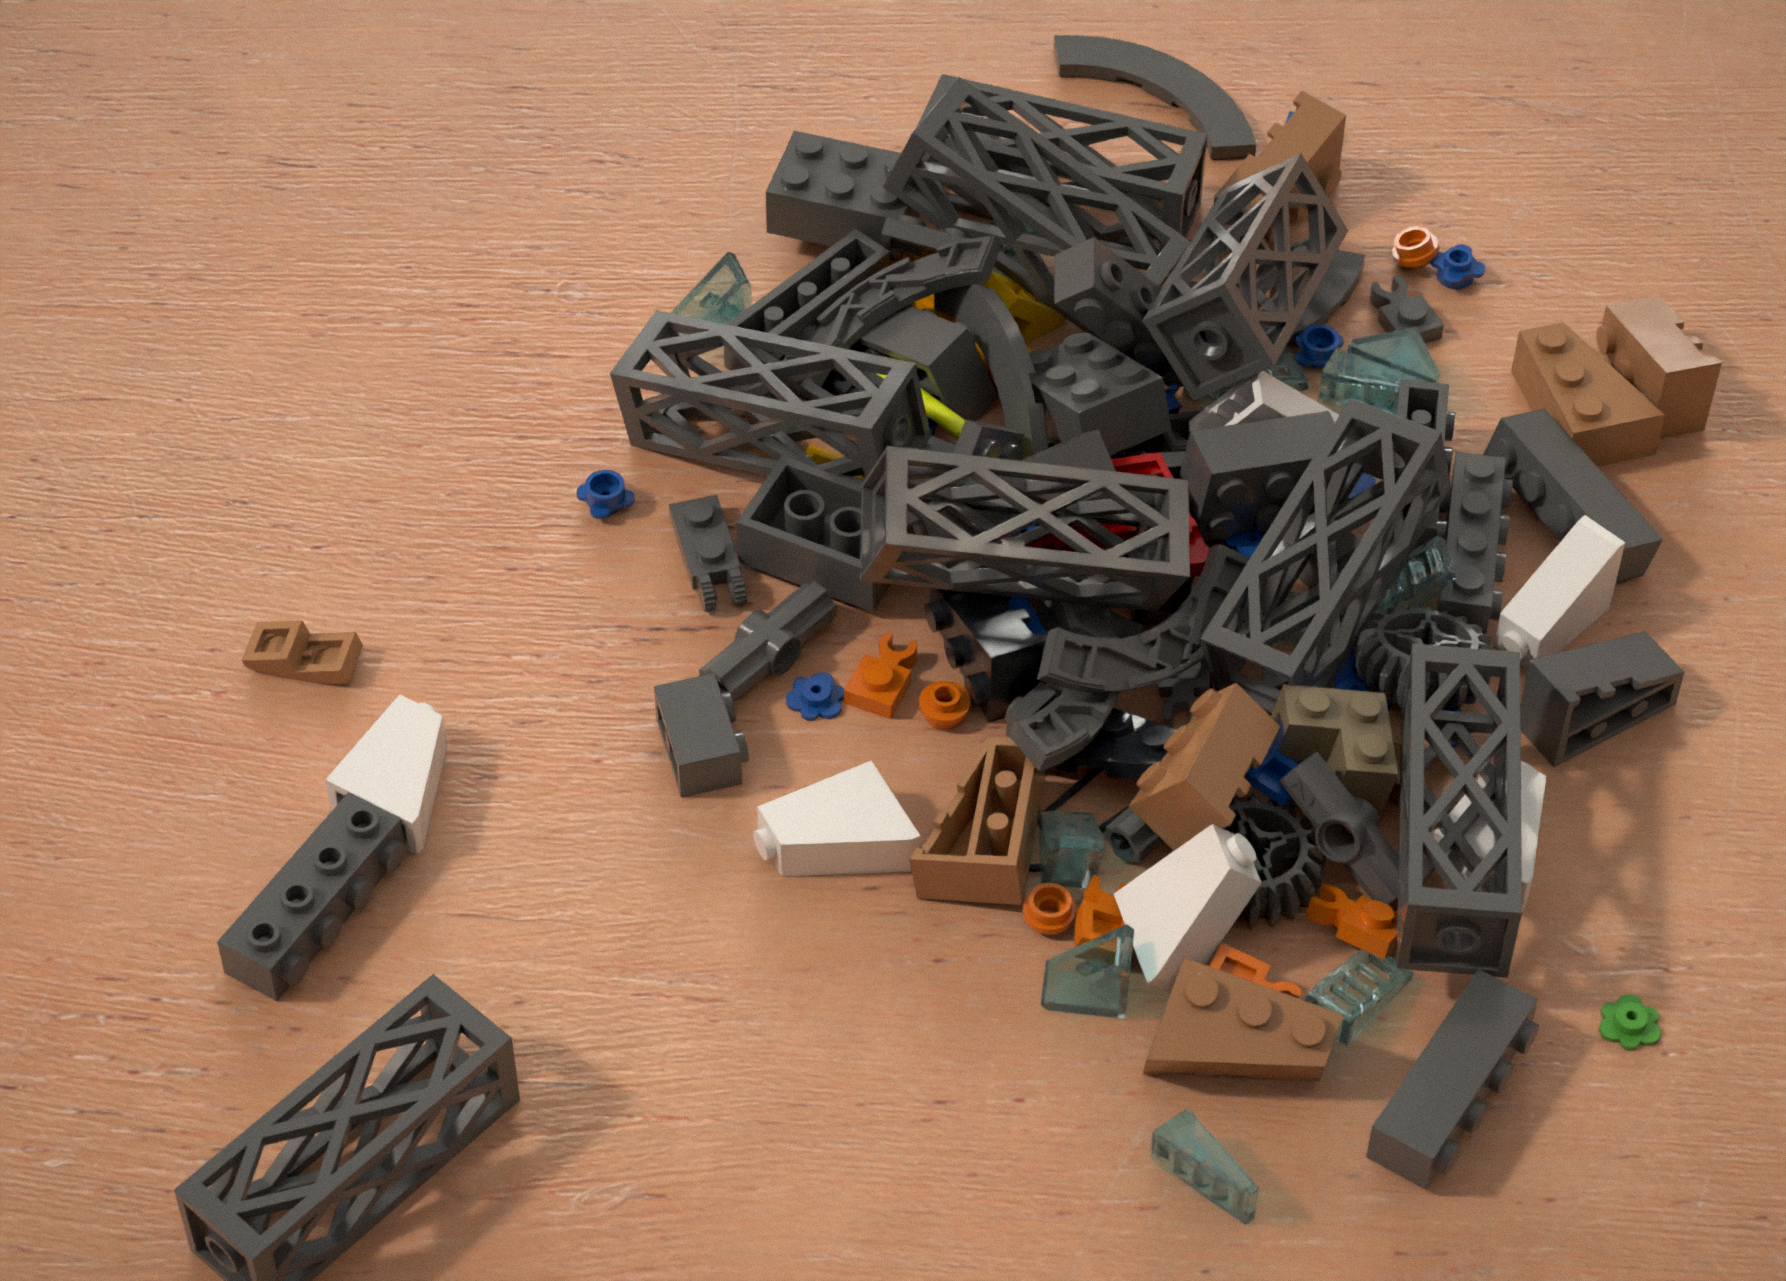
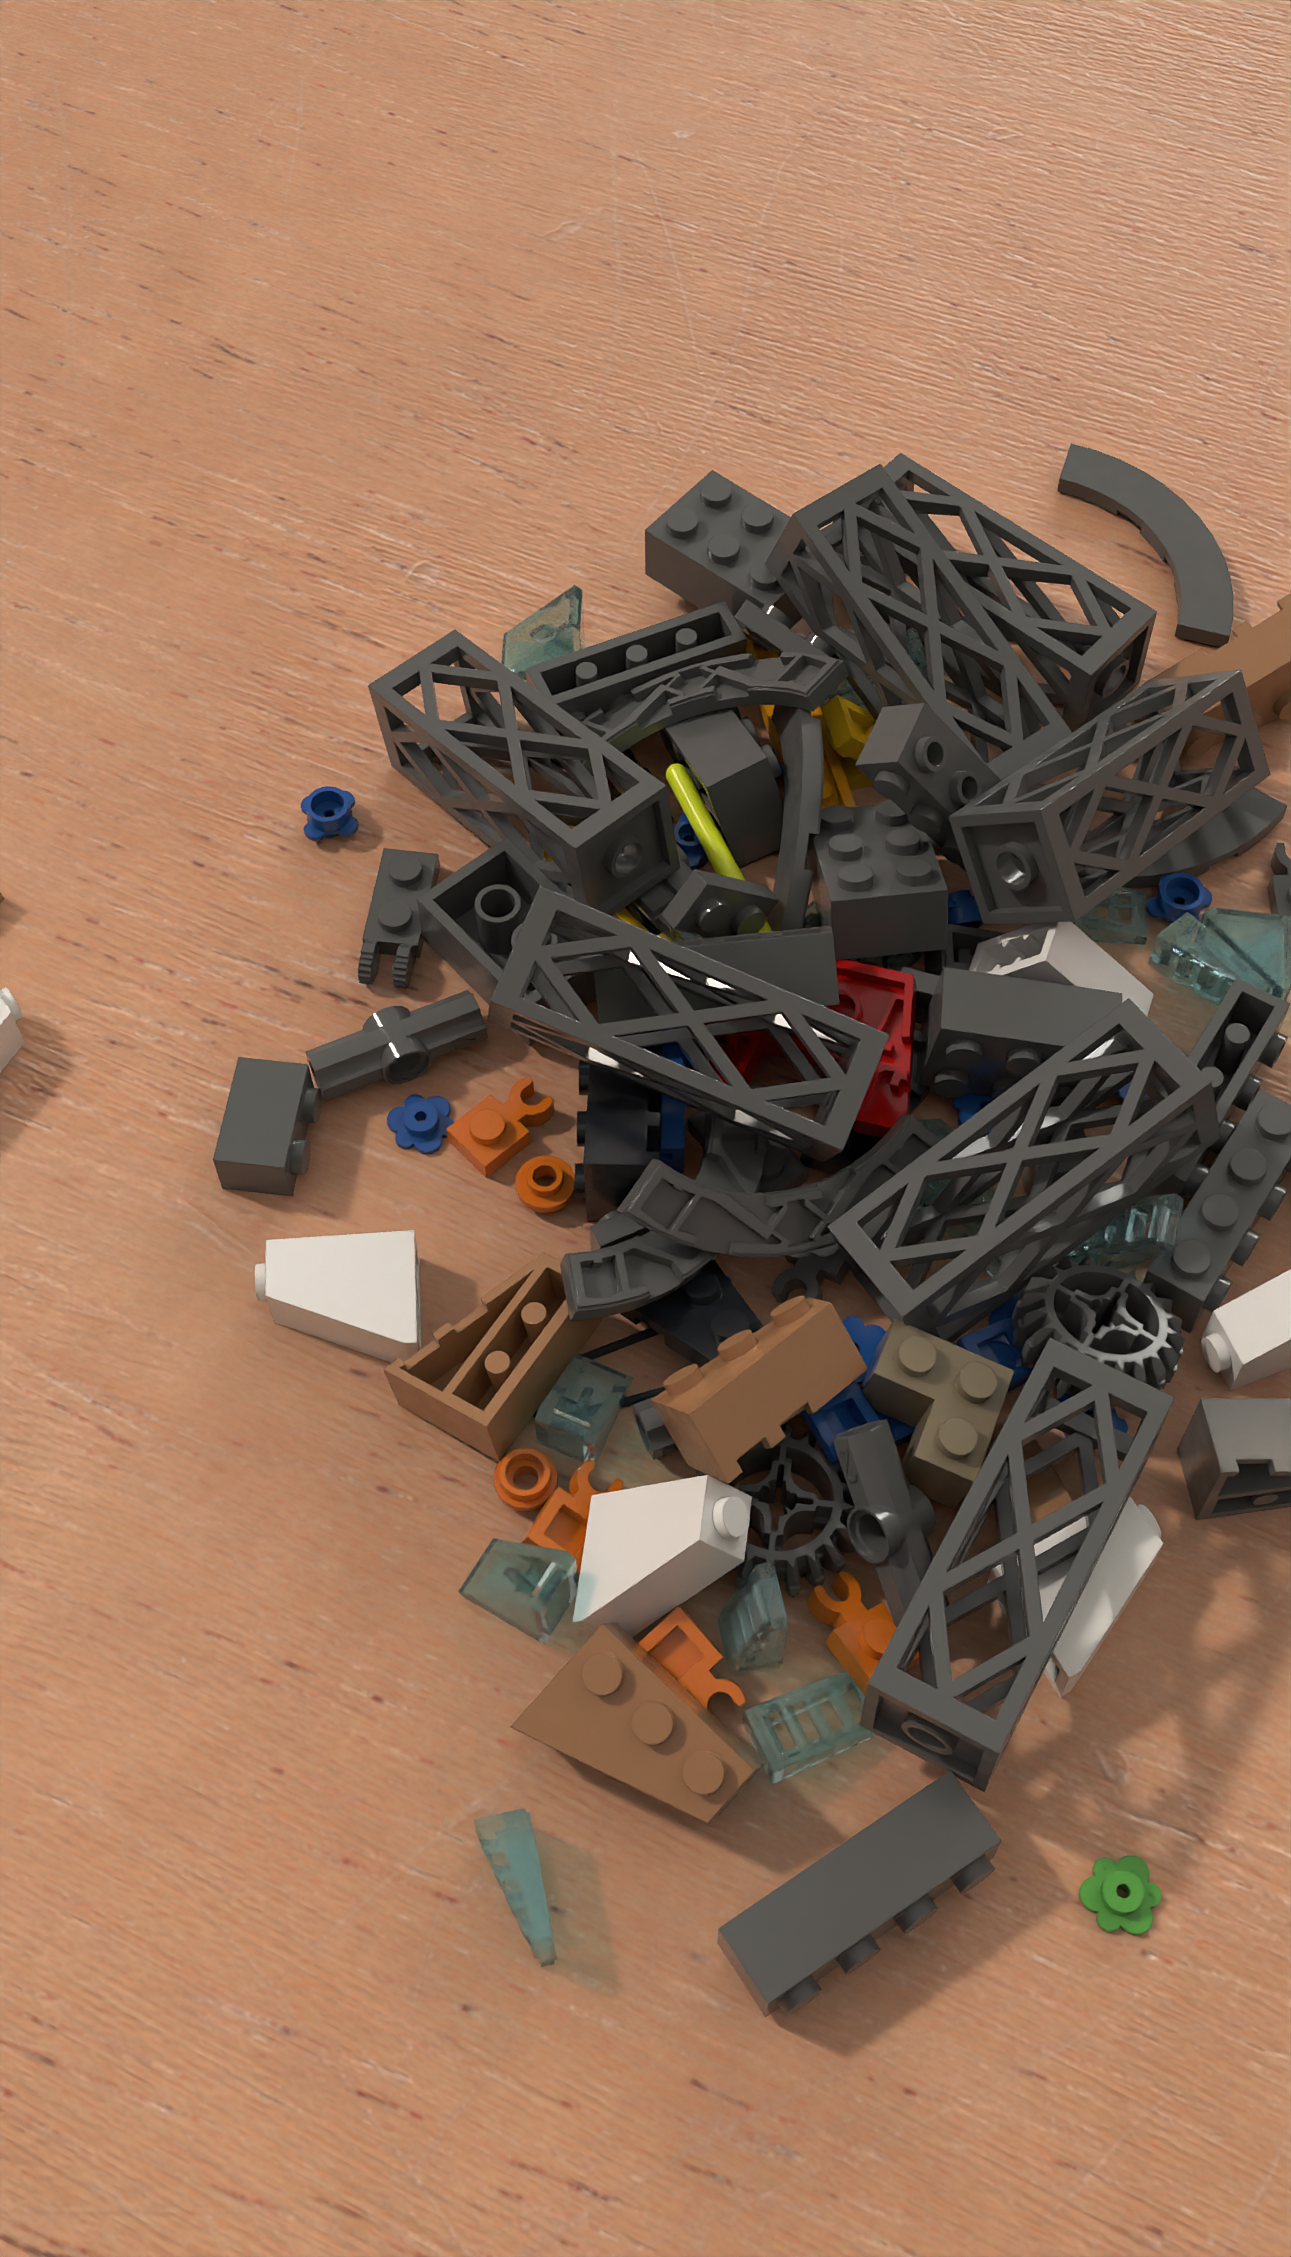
camera: 25 degrees right, 10 degrees up
(1285, 930) = (754, 1624): none -> clear light blue slope

